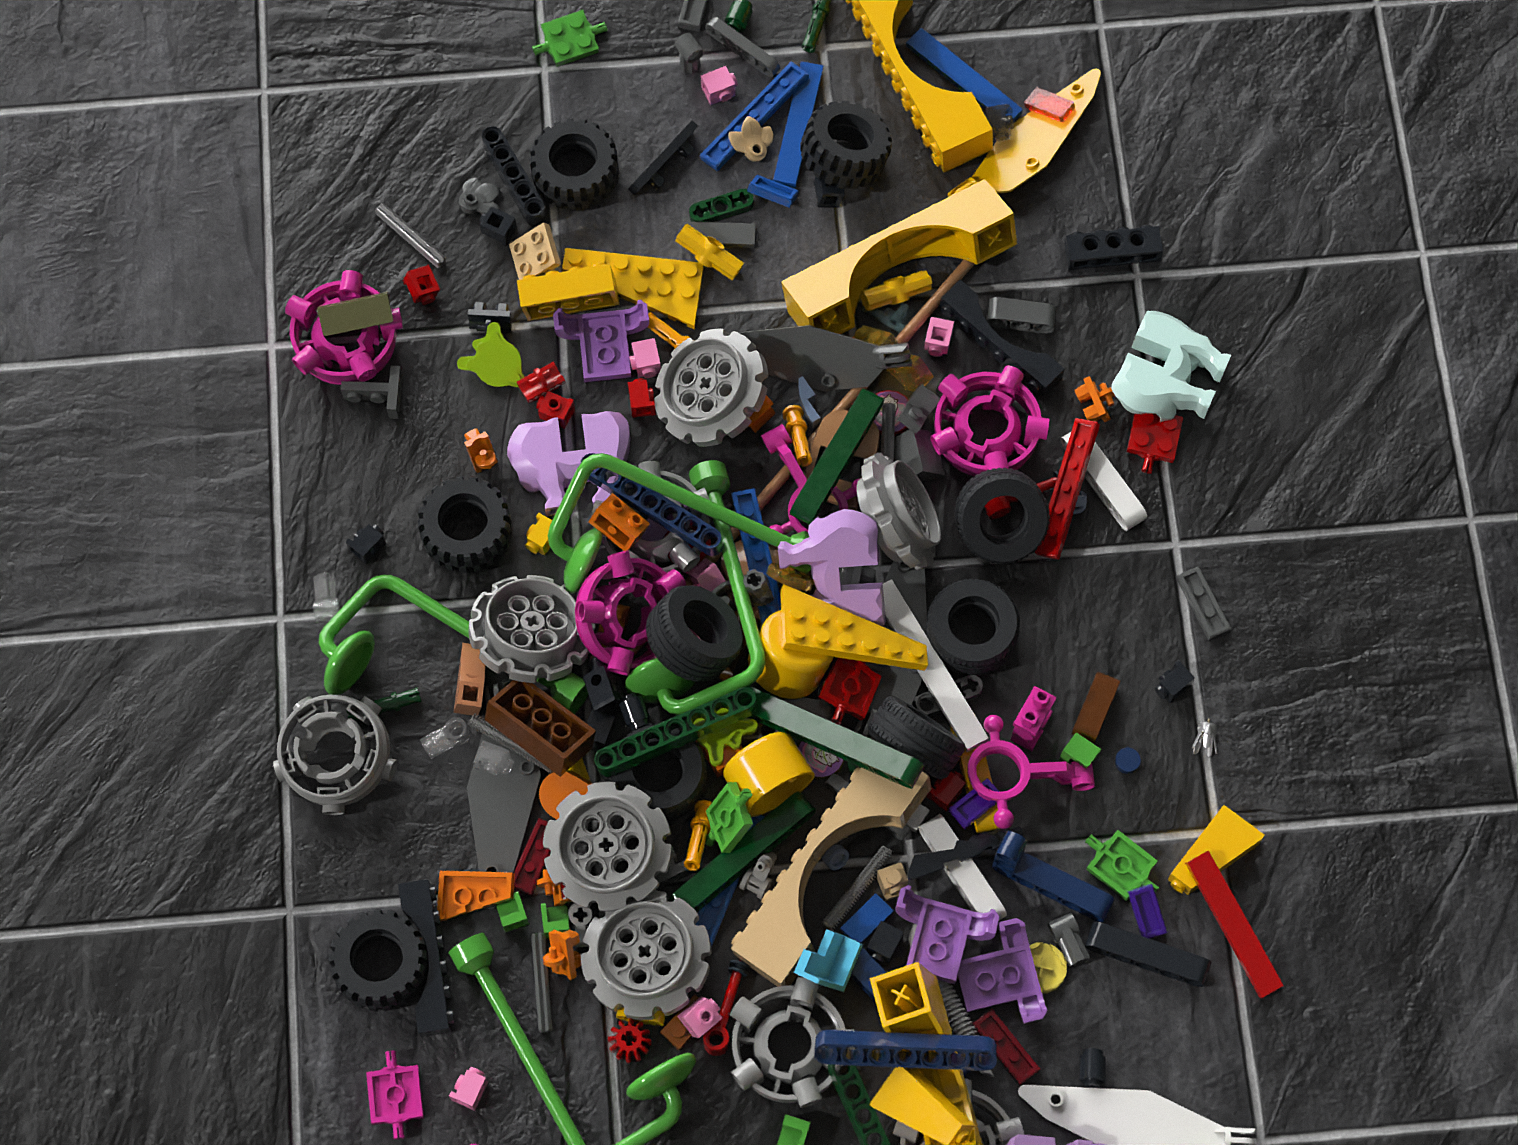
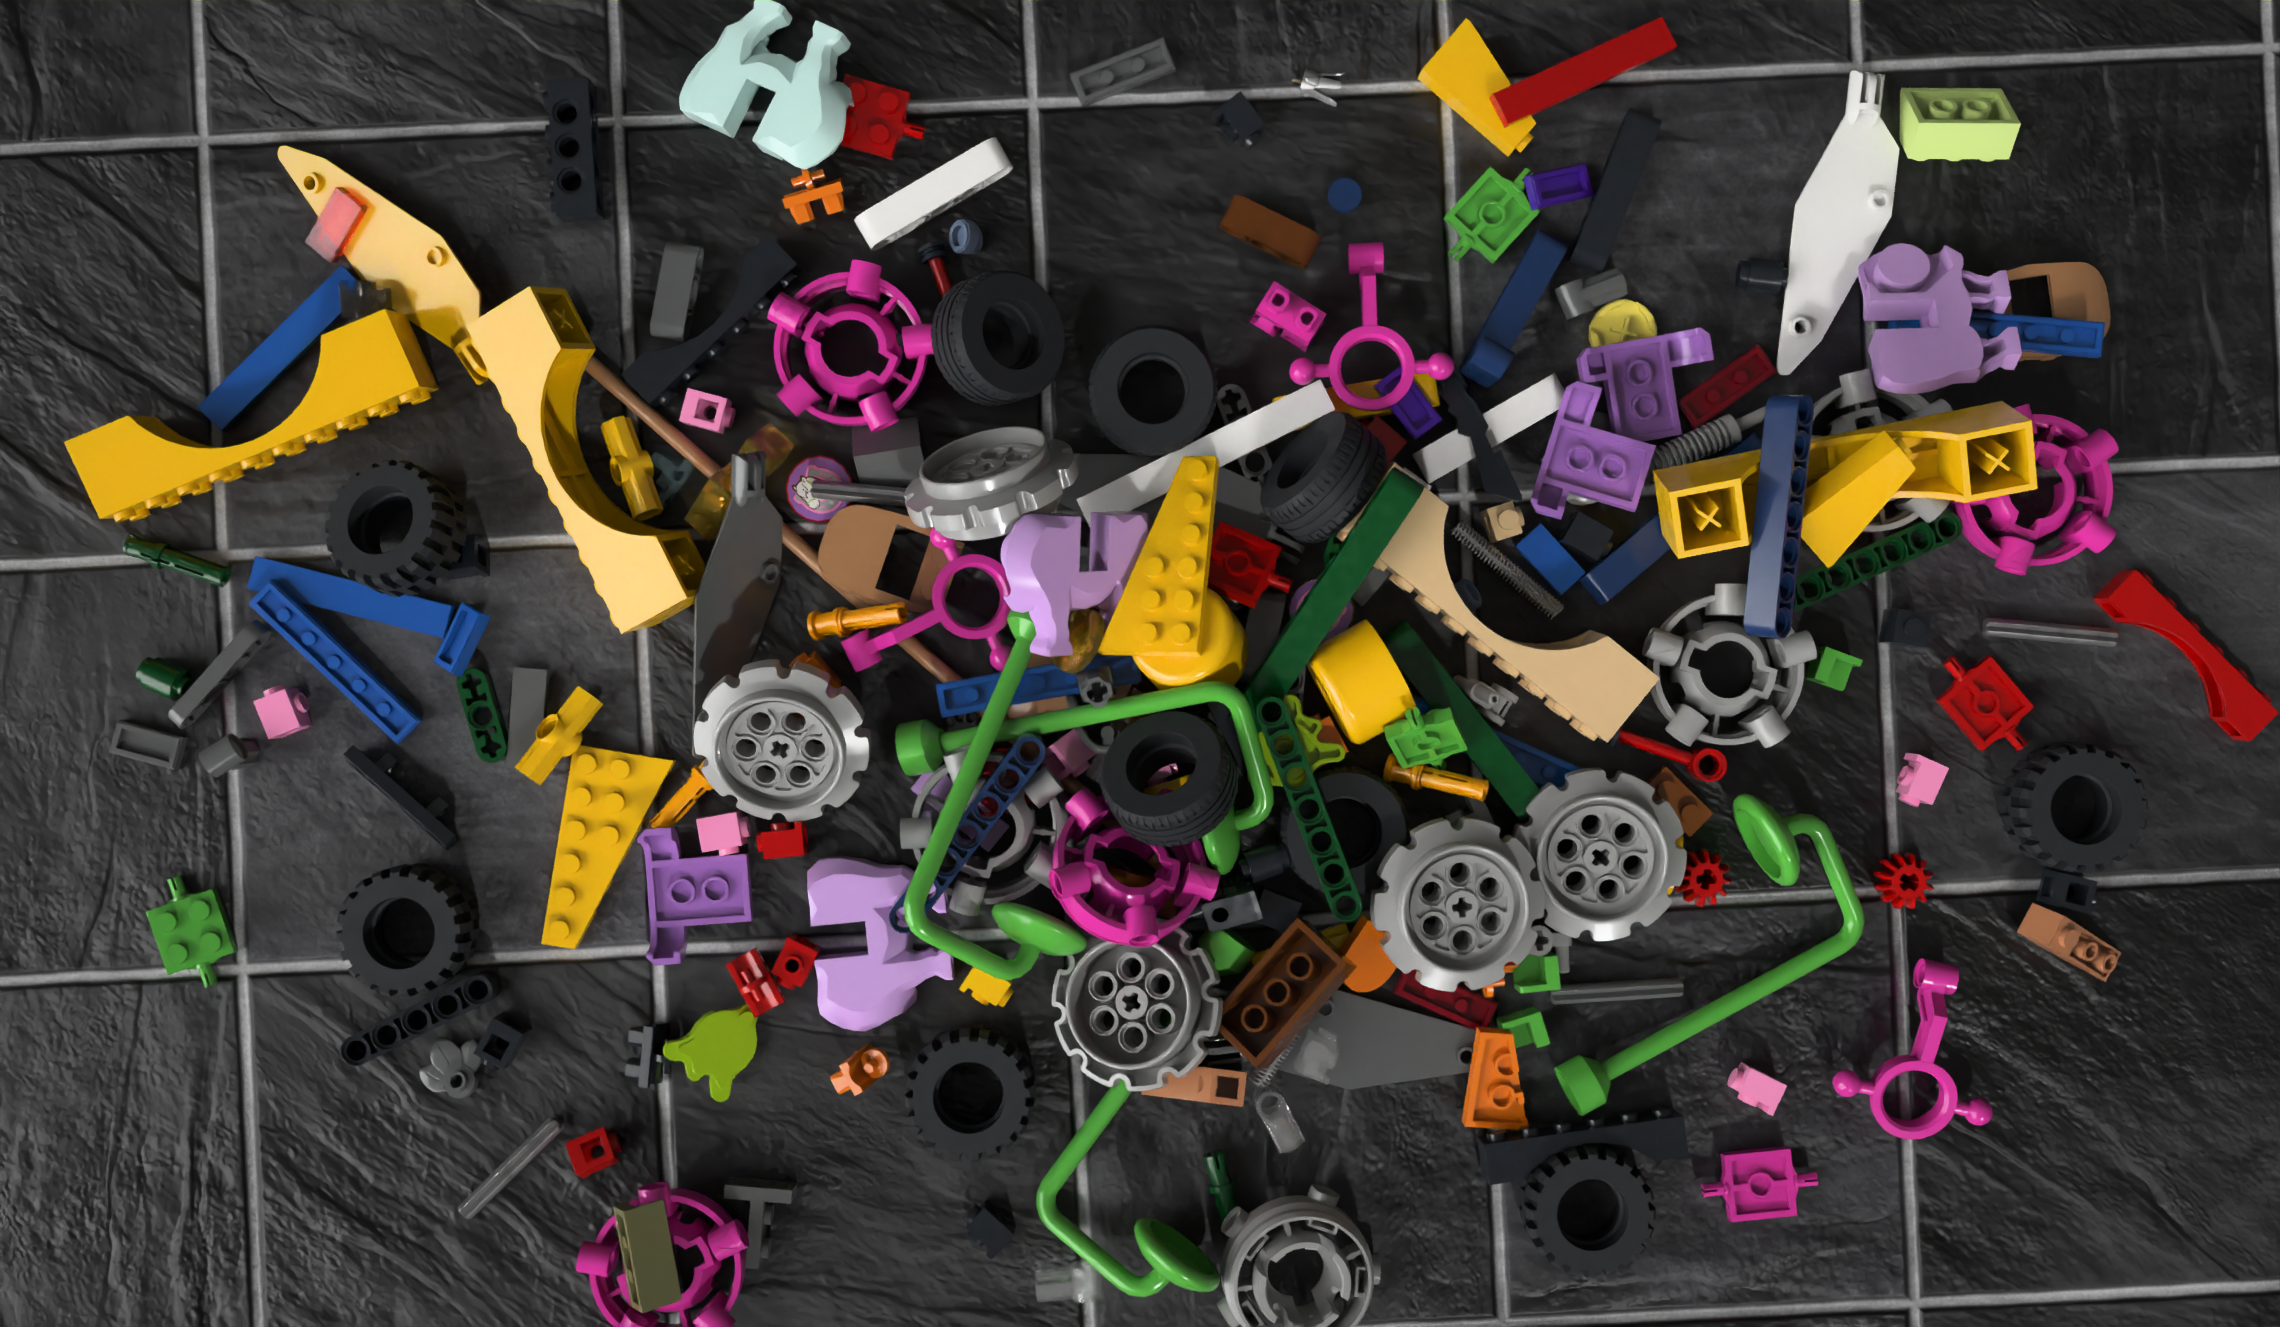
camera: 85 degrees left, 20 degrees up
(535, 252) = (553, 988): tan plate -> none
(561, 954) = (1589, 963): orange hips -> none
(571, 290) = (618, 942): yellow brick -> none
(619, 522) = (994, 878): orange brick -> none
(700, 1016) = (1683, 785): bright pink brick -> none
(750, 136) = (372, 667): tan plate -> none
(806, 401) = (794, 604): sand blue slope -> none
(831, 963) = (1627, 610): medium azure panel -> none
(837, 456) = (900, 565): dark green beam -> none
(918, 408) = (819, 447): dark grey plate -> none
(1068, 486) = (945, 239): red tile -> none
(1080, 751) = (1336, 258): bright green panel -> none

